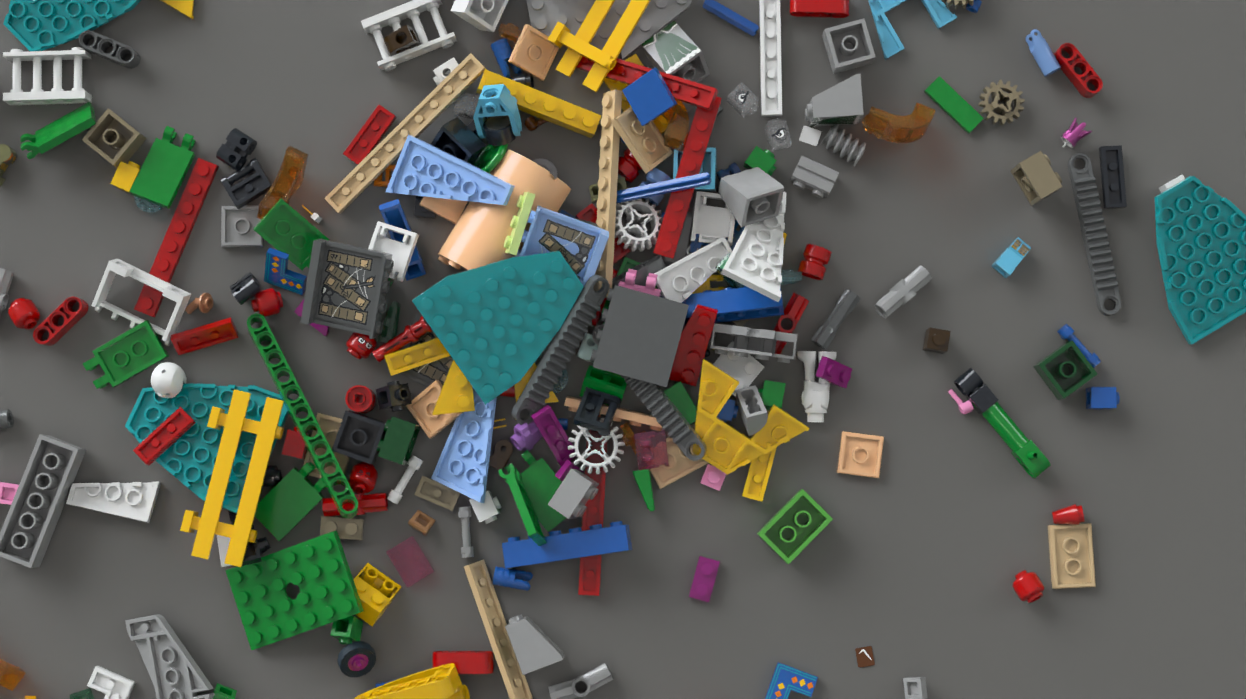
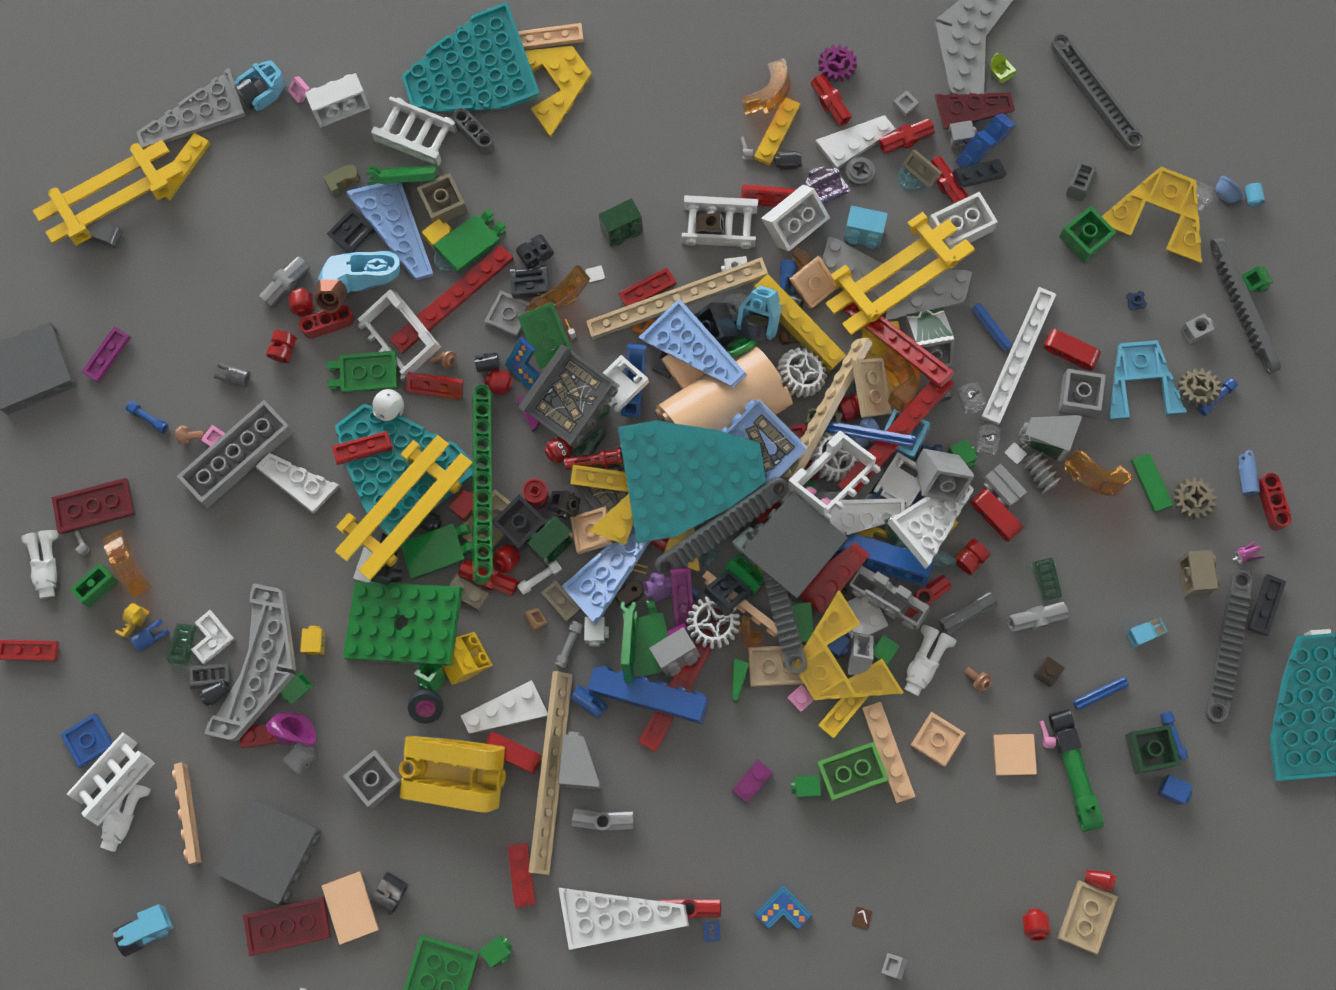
camera: 25 degrees right, 10 degrees down
(27, 369) = (281, 346): none -> red wheel
(31, 211) = (347, 227): none -> black plate
(62, 260) = (353, 273): none -> medium azure piece
(72, 182) = (391, 217): none -> light blue wing
(214, 648) = (313, 641): none -> yellow brick
(309, 143) = (595, 273): none -> white sticker
(310, 80) = (621, 222): none -> dark green brick
(410, 561) = (510, 647): clear pink plate -> none
(440, 619) = (510, 708): none -> white wing
(519, 223) = (736, 406): yellowish green plate -> none
(578, 146) = (810, 368): none -> white gear
(616, 263) = (839, 441): none -> white hinge
(649, 96) = (893, 355): blue tile -> none
(651, 449) = (758, 647): clear pink plate -> none
(758, 561) = (806, 786): none -> green brick
(819, 208) = (996, 515): none -> red beam
(819, 489) = (888, 751): none -> light nougat plate
(833, 372) = (946, 656): magenta plate -> none
(877, 379) = (982, 681): none -> nougat plate
(890, 254) = (1040, 581): none -> clear green slope
(938, 435) = (1014, 754): none -> light nougat tile
(993, 337) = (1101, 693): none -> blue axle

